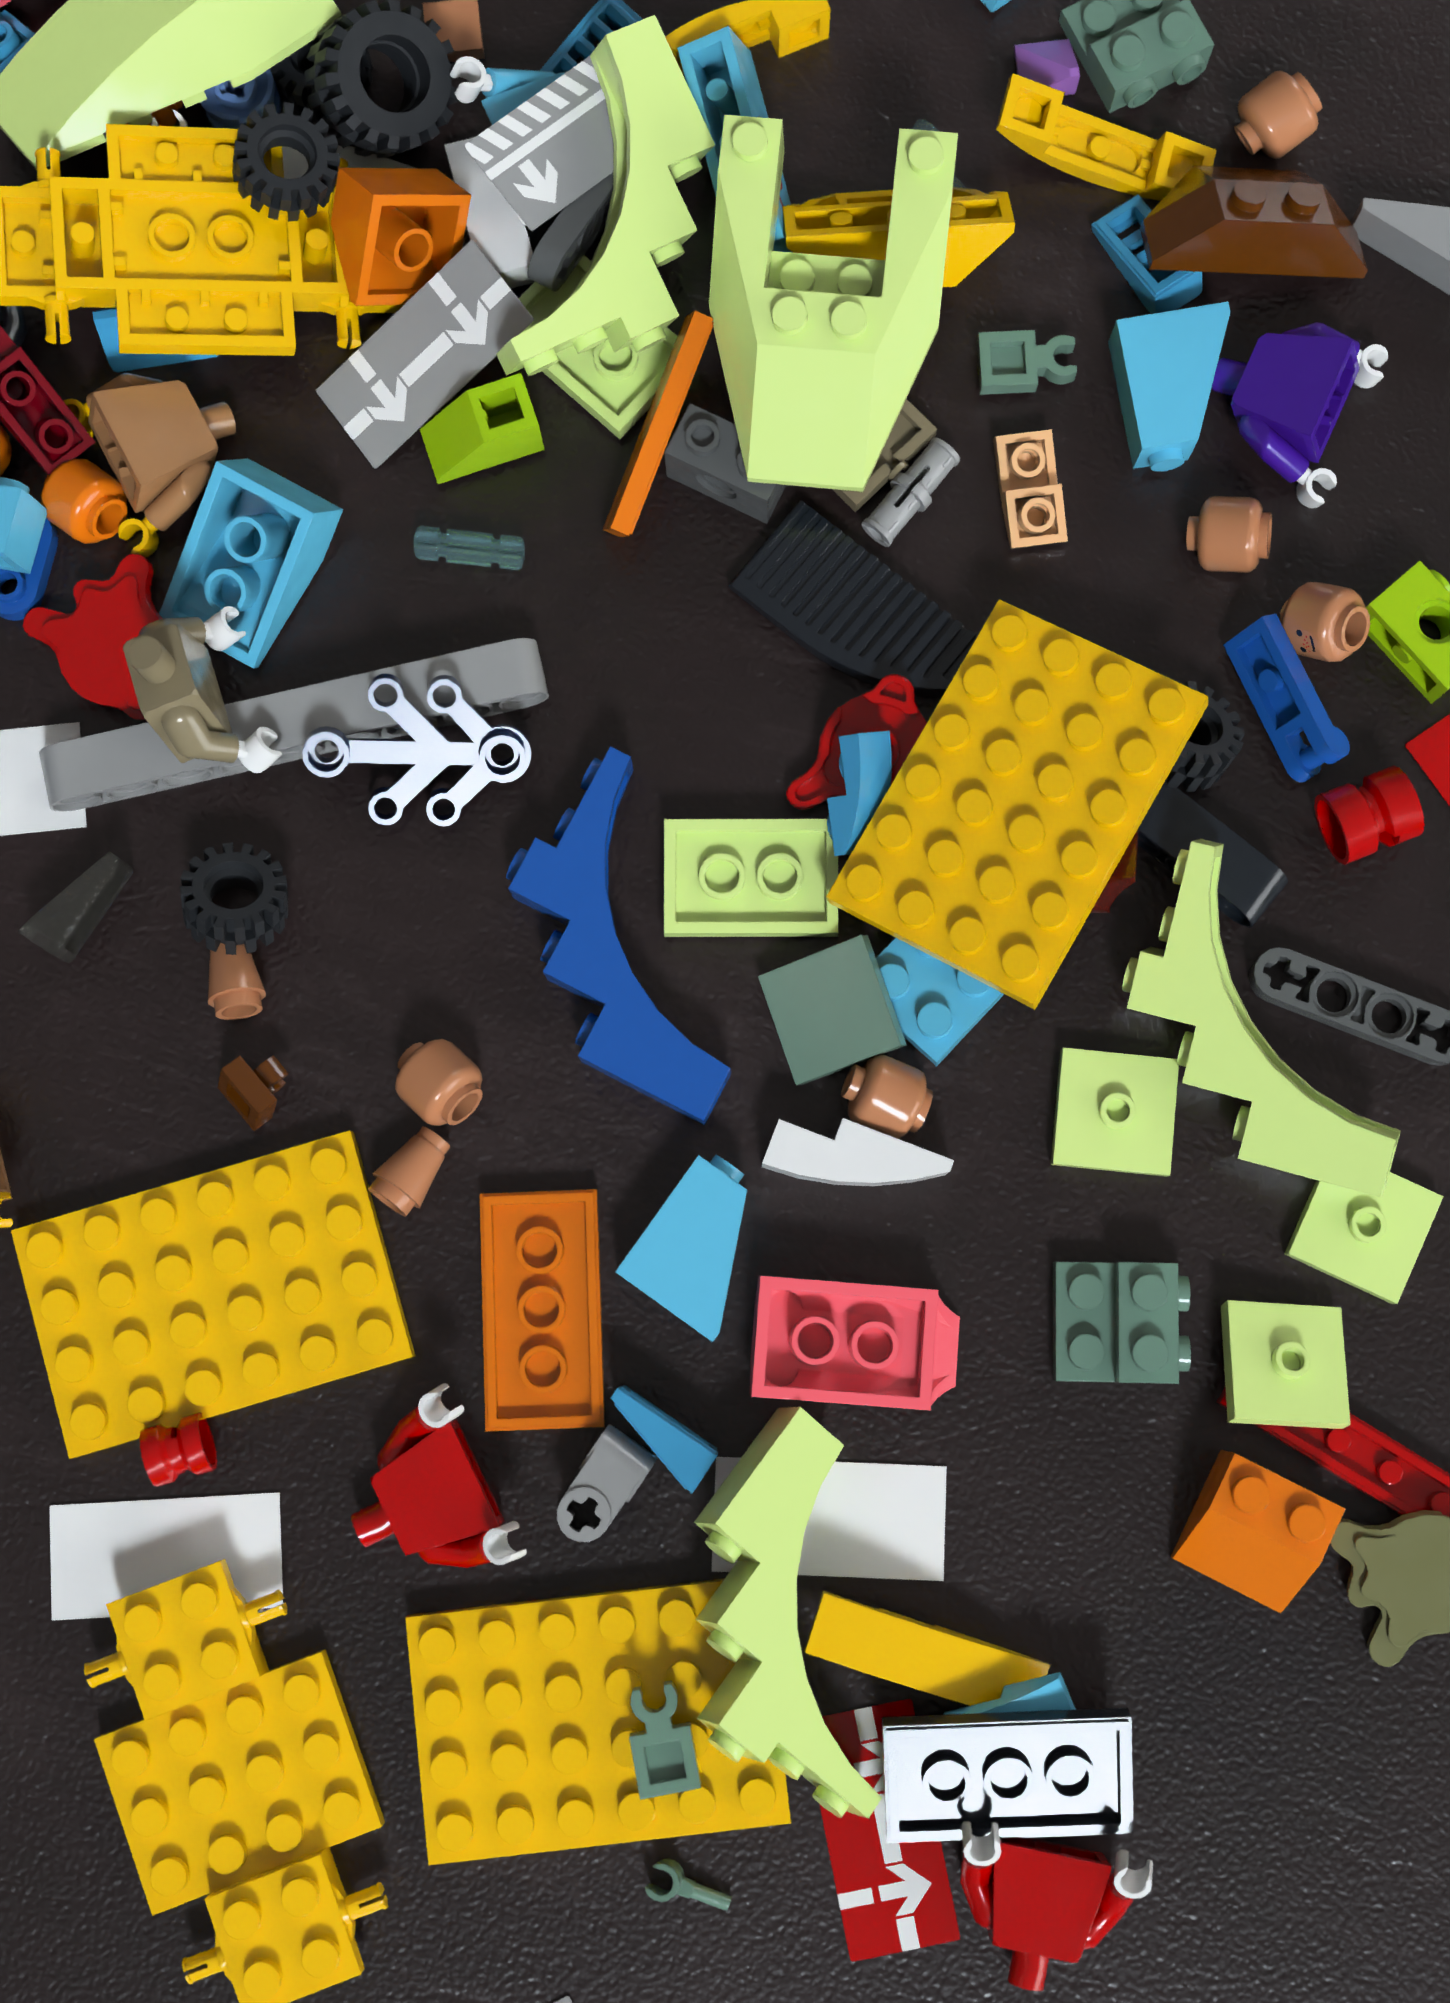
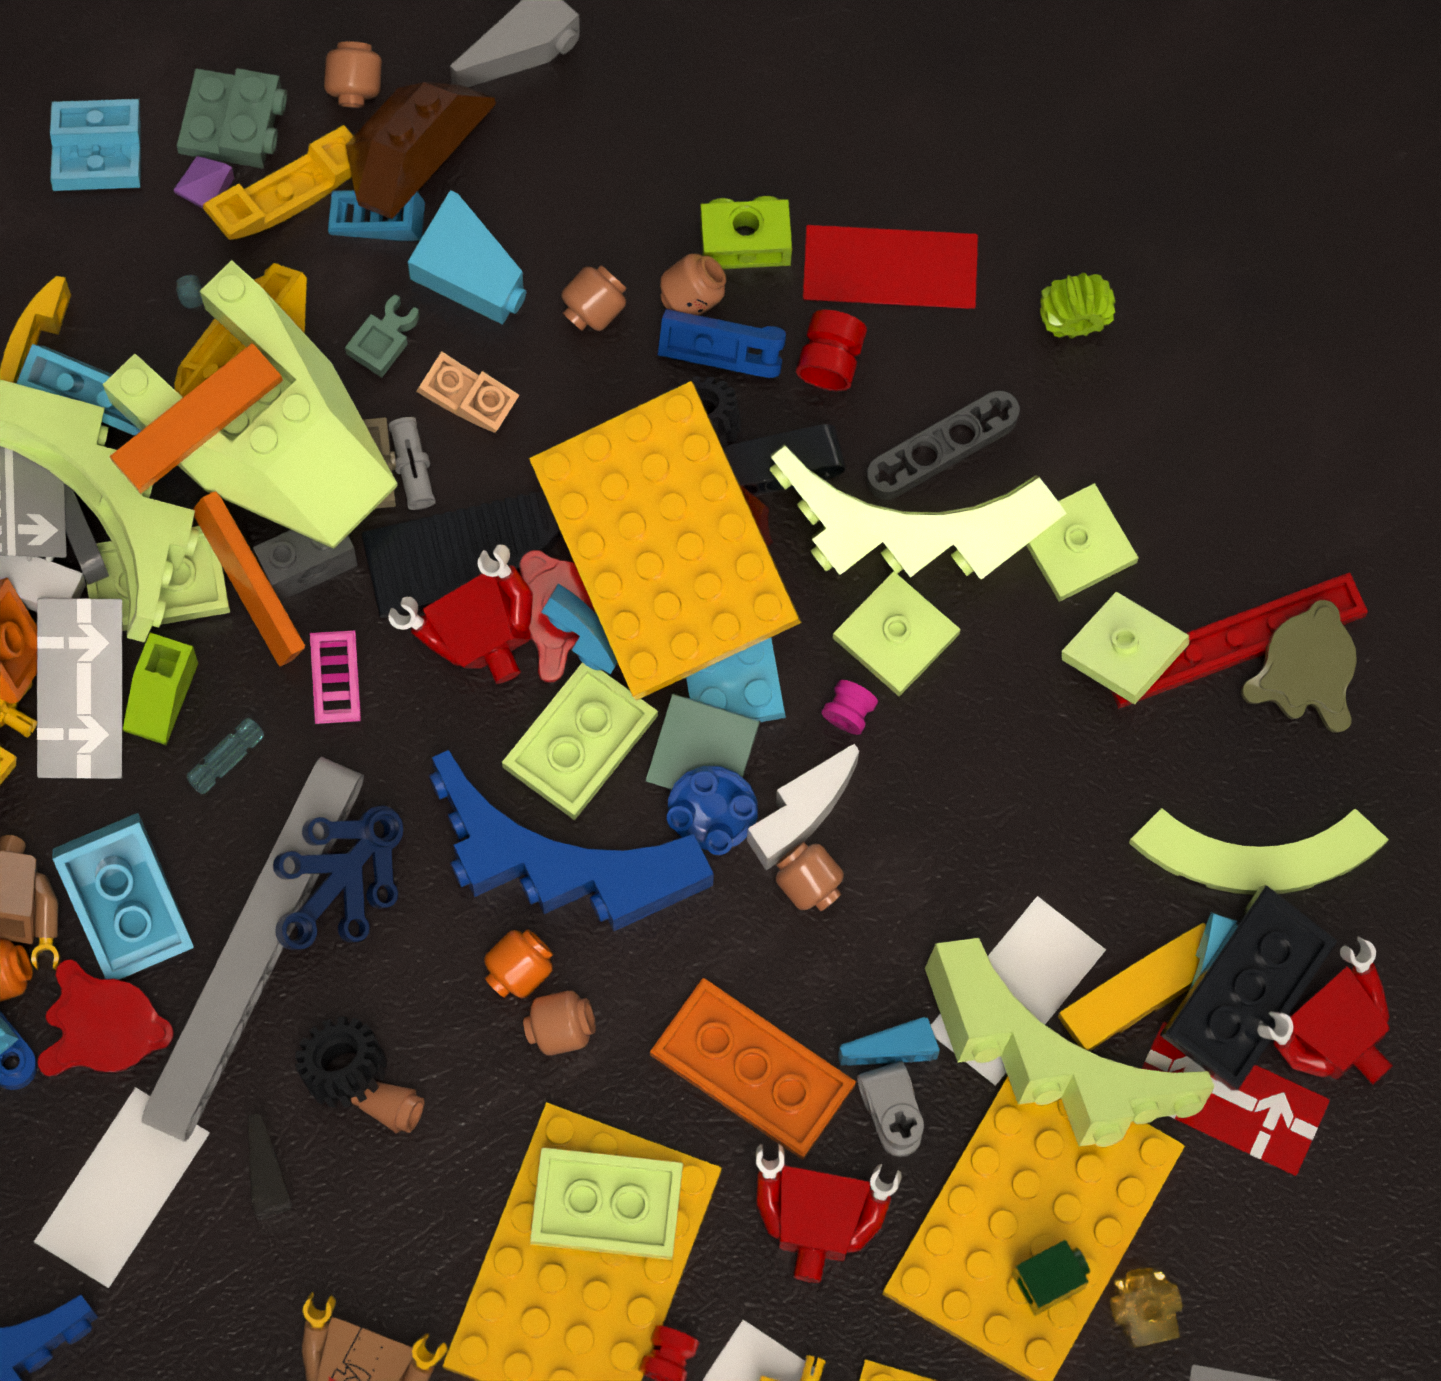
camera: 60 degrees left, 10 degrees down
(182, 693) = (193, 986): dark tan torso -> none
(251, 1089) = (472, 1144): reddish brown tile -> none
(278, 1272) = (606, 1203): none -> yellowish green plate
(410, 1172) = (603, 1086): nougat cone -> none
(468, 995) = (518, 964): none -> orange head
(535, 1793) = (1051, 1276): none -> dark green brick
(582, 1913) = (1146, 1307): none -> clear yellow brick
(634, 559) = (329, 640): none -> dark pink slope
(663, 1752) = (1085, 1182): sand green plate -> none
(685, 1887) = (1180, 1239): sand green hand -> none
(691, 1246) = (786, 944): medium azure slope -> none
(758, 231) = (196, 418): none -> orange tile
(776, 1066) = (713, 807): none -> blue dish
(781, 1218) = (809, 876): none -> nougat head
(789, 680) = (478, 620): none -> red torso
(852, 1343) = (916, 892): coral slope -> none
(887, 1096) = (782, 756): nougat head -> none
(995, 1124) = (849, 707): none -> dark pink wheel
(1119, 1322) = (1027, 726): sand green plate -> none
(1153, 1683) = (1246, 868): none -> yellowish green tile
(1257, 1531) = (1212, 739): orange slope -> none
(1293, 396) = (539, 198): dark purple torso -> none

